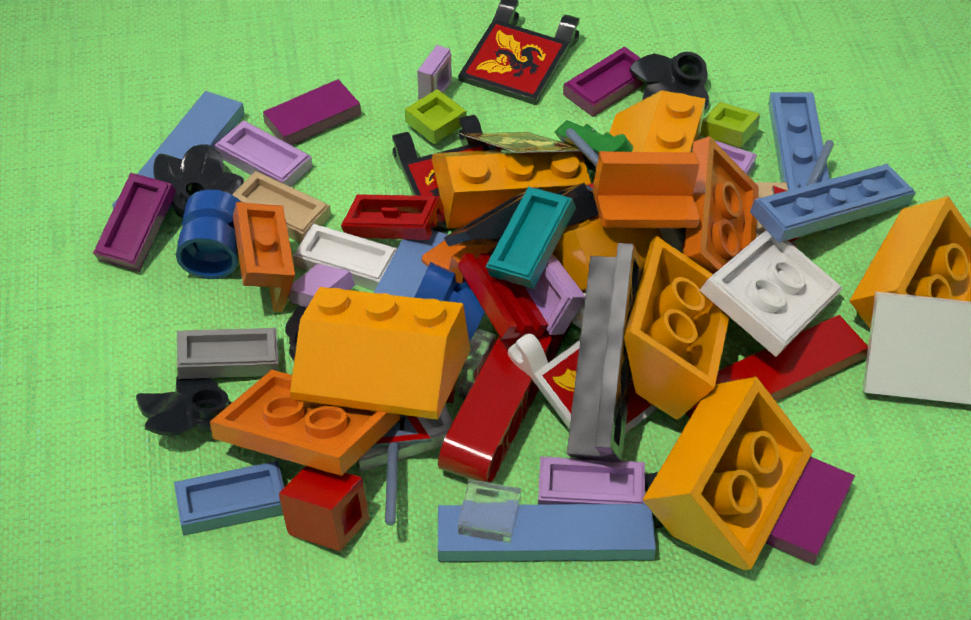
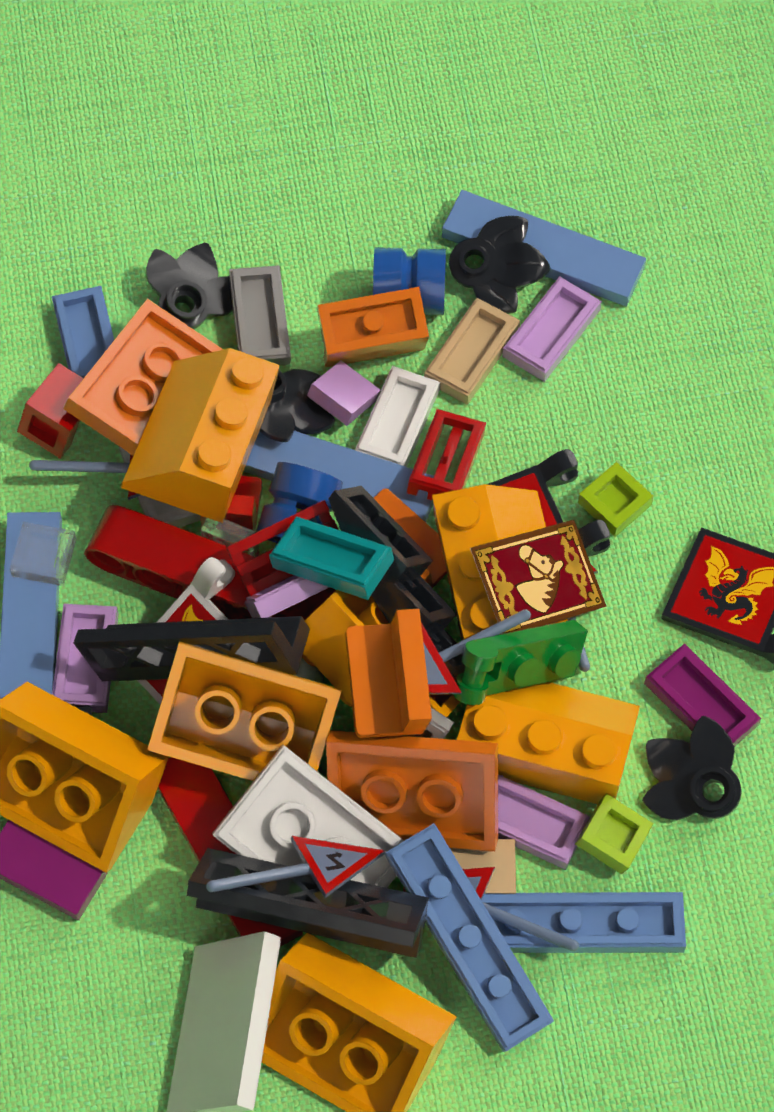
camera: 90 degrees right, 15 degrees up
(134, 222) = (433, 211): magenta tile -> none
(312, 112) = (623, 372): magenta tile -> none
(435, 72) = (681, 494): tile -> none
(800, 262) = (326, 861): none -> sand blue piece
(835, 283) = (351, 914): none -> black fence

